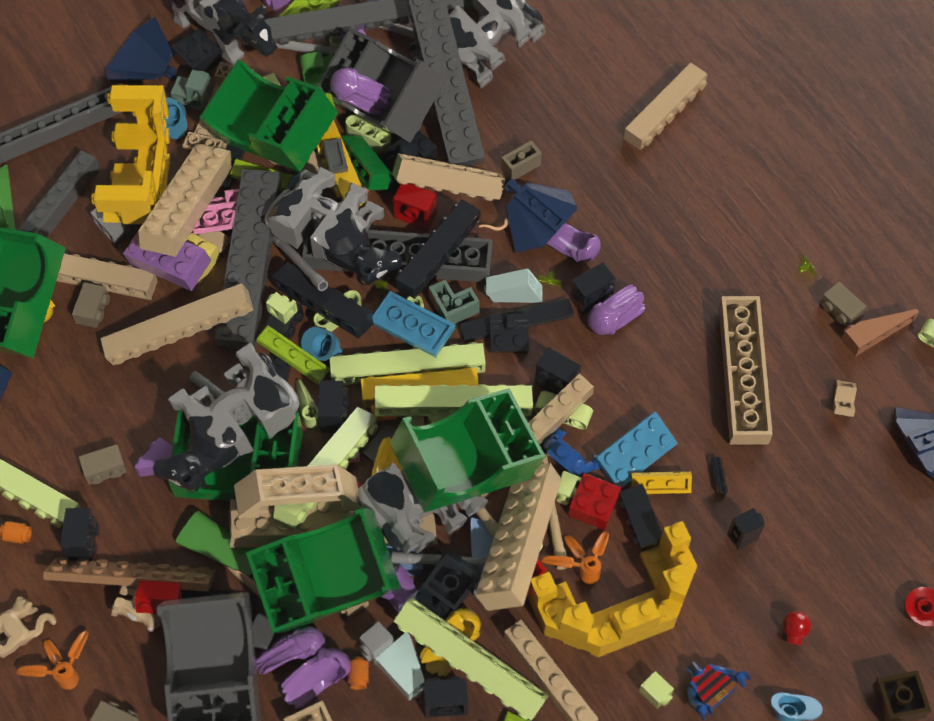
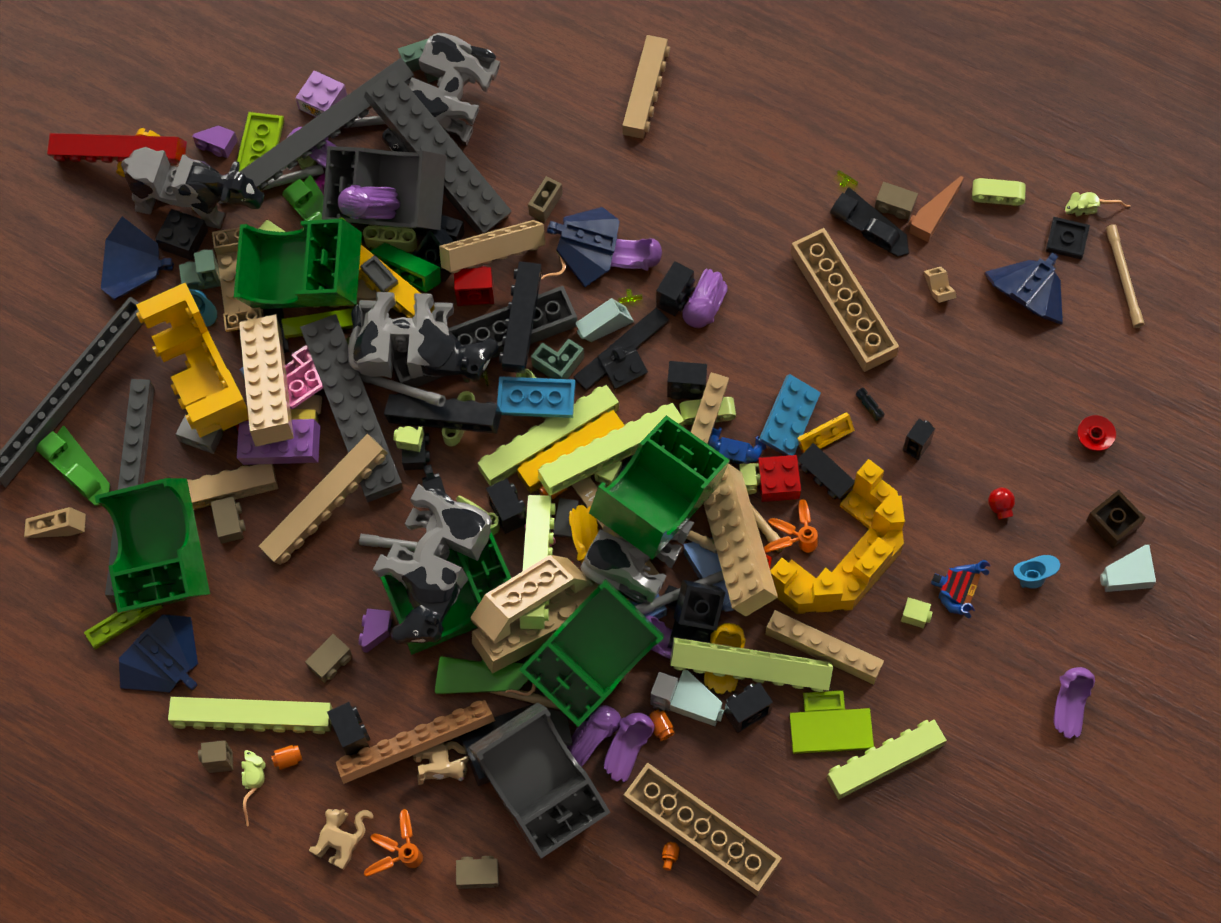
camera: 25 degrees left, 5 degrees up
(153, 593) = (454, 747): red brick -> none
(293, 355) = (442, 476): lime tile -> none
(320, 343) = (460, 454): dark azure piece -> none
(808, 313) = (873, 225): none -> black panel

